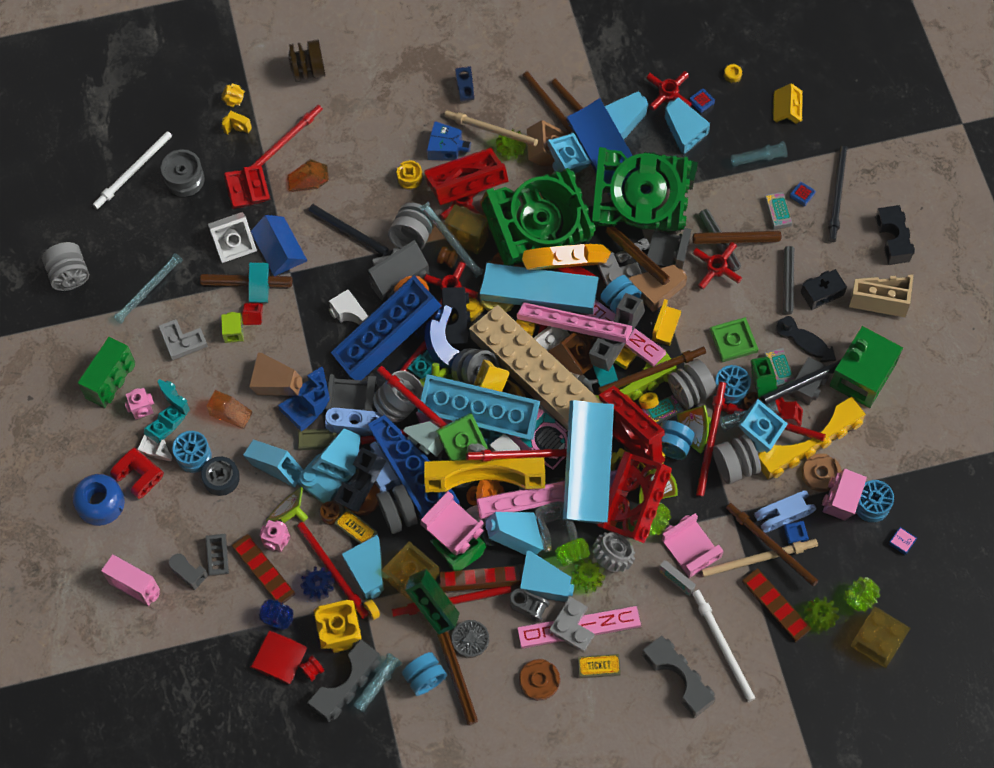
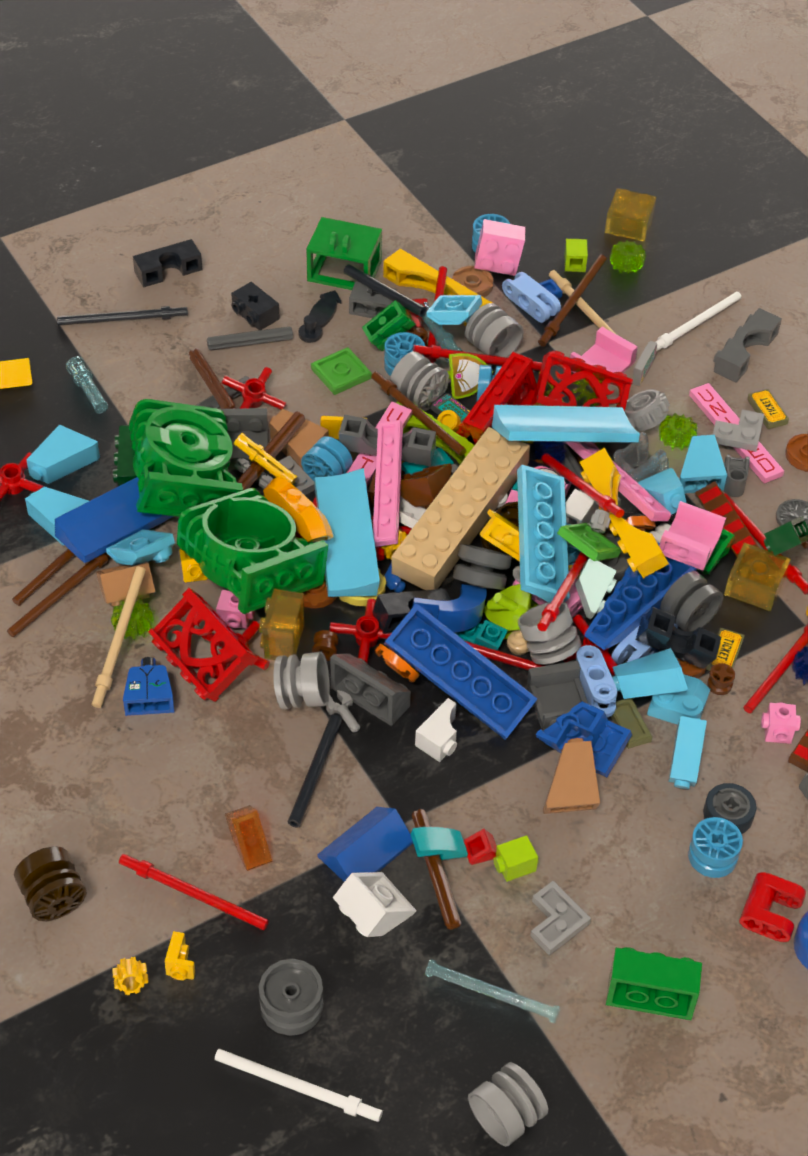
camera: 110 degrees left, 15 degrees down
(139, 403) = (676, 933): bright pink brick -> none
(155, 450) = (724, 901): white slope -> none
(165, 424) = (683, 899): teal slope -> none
(171, 395) = (646, 898): teal slope -> none
(228, 409) = (636, 830): clear orange slope -> none
(246, 186) = (285, 910): red slope -> none
(289, 508) = (738, 718): shield -> none
(366, 567) = (769, 623): medium azure slope -> none
(409, 174) = (209, 719): yellow wheel -> none
(451, 239) = (279, 653): clear light blue bar -> none
(465, 83) = (45, 690): dark blue leg -> none
(572, 552) = (664, 438): clear neon green gear -> none
(630, 244) = (257, 454): none -> yellow pin
(702, 100) = (16, 449): tile -> none
(776, 605) = (632, 292): tile -> none
(778, 210) = (159, 360): tile -> none
(780, 366) = (353, 332): tile -> none
(802, 194) = (131, 344): tile -> none
(834, 568) = (575, 255): none -> lime brick
(862, 594) = (603, 225): clear neon green gear -> none
(882, 295) = (248, 254): tan wedge -> none
(902, 541) = (521, 217): bright pink tile -> none

